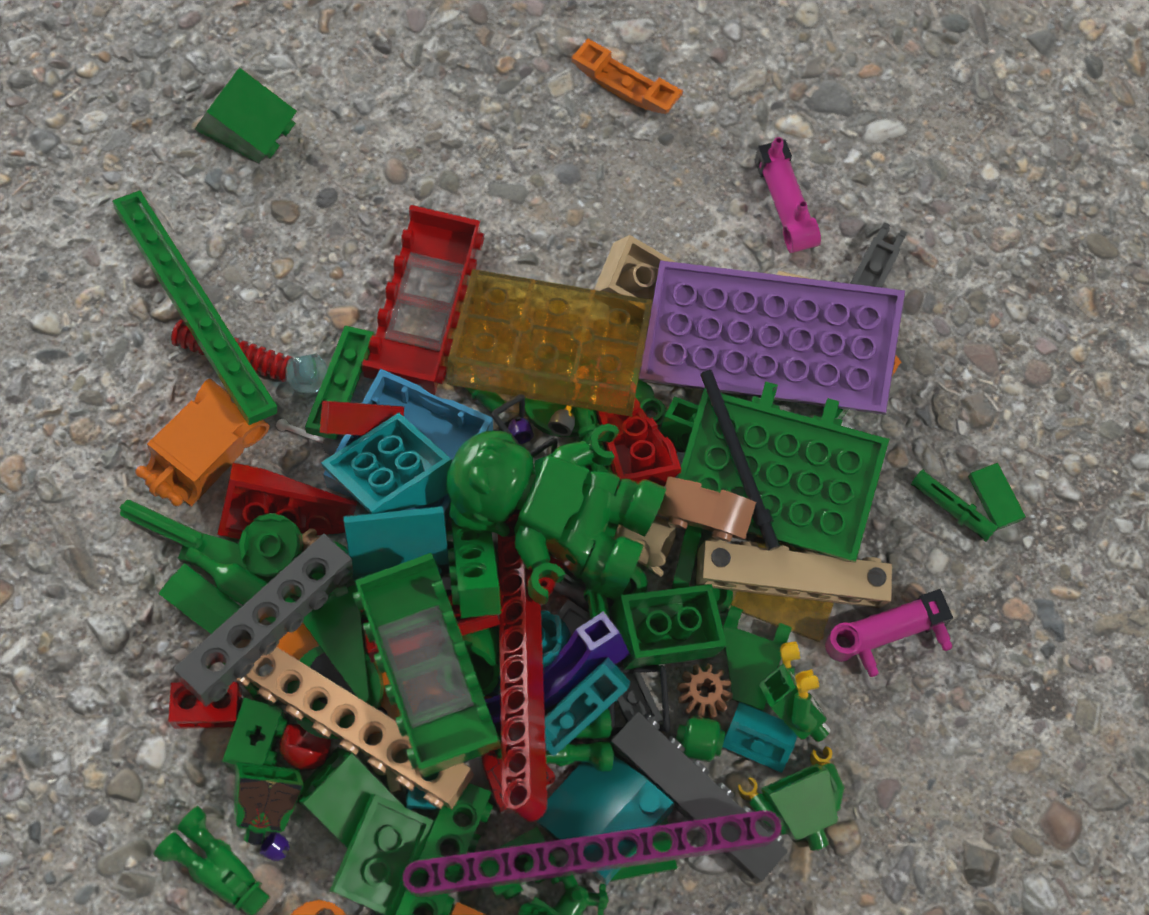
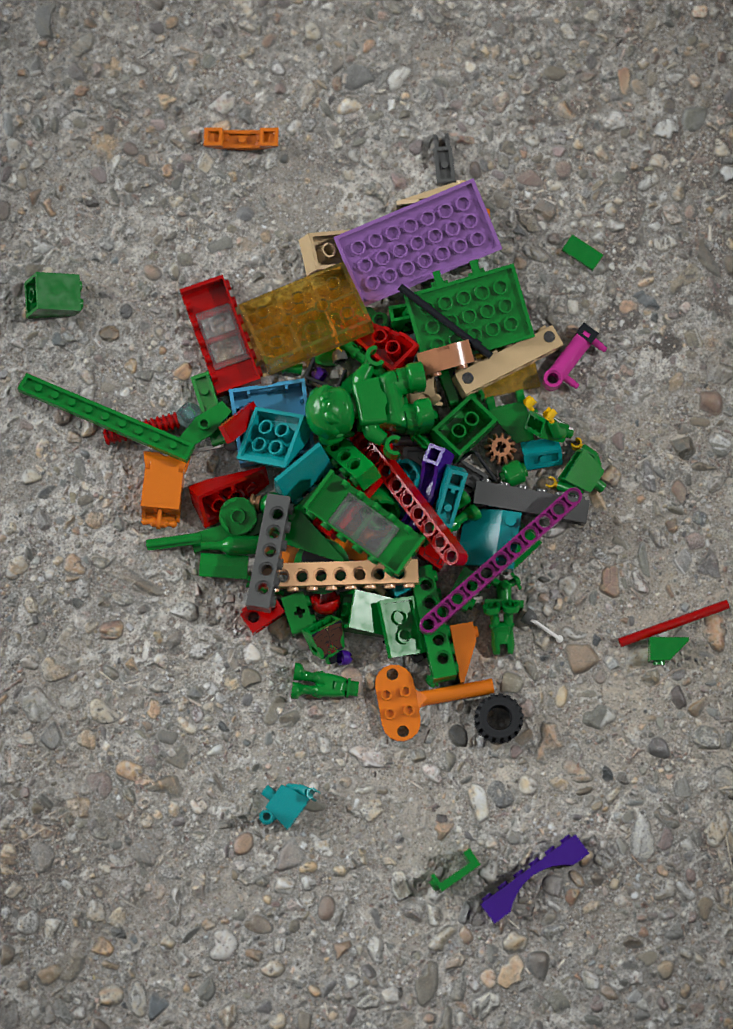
camera: 30 degrees left, 10 degrees up
(307, 394) = (206, 423): none -> green piece
(799, 228) = (390, 167): dark pink piece -> none
(958, 508) = (563, 271): green pin -> none

